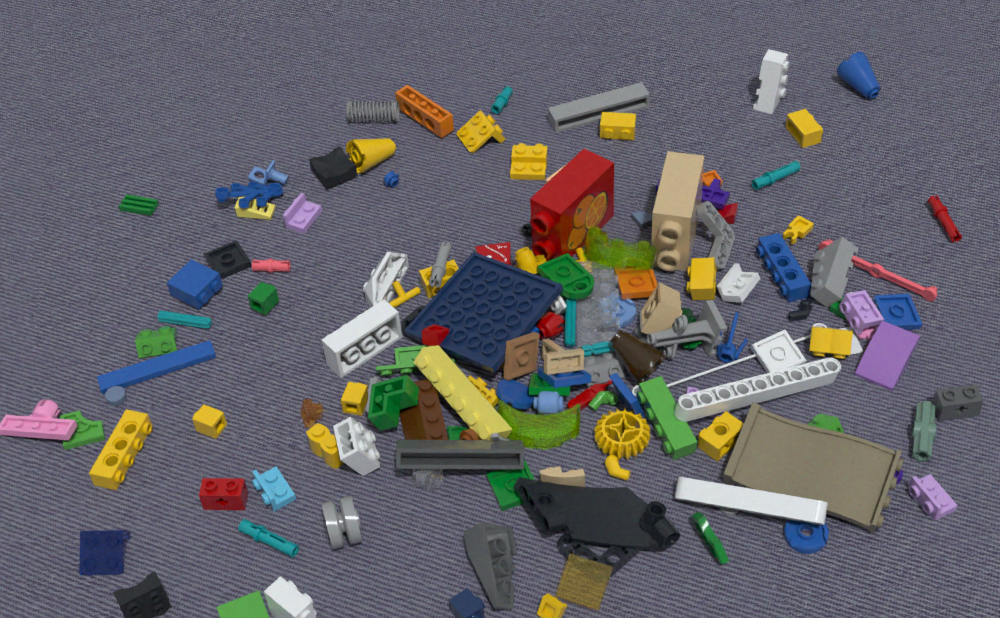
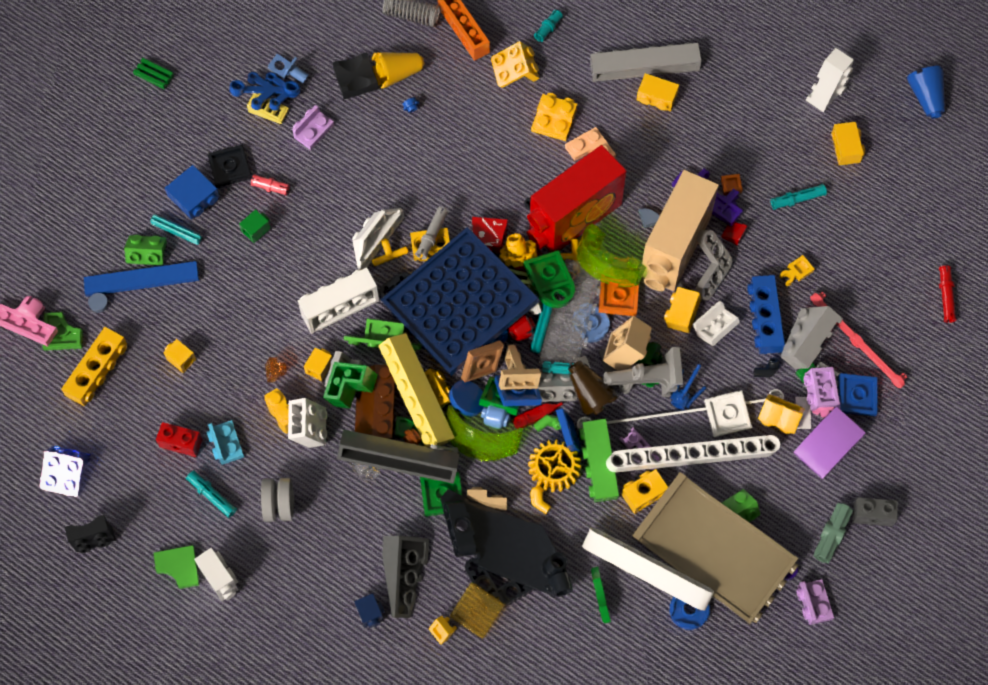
camera: 10 degrees right, 20 degrees up
(434, 335) = (406, 316): red slope -> none

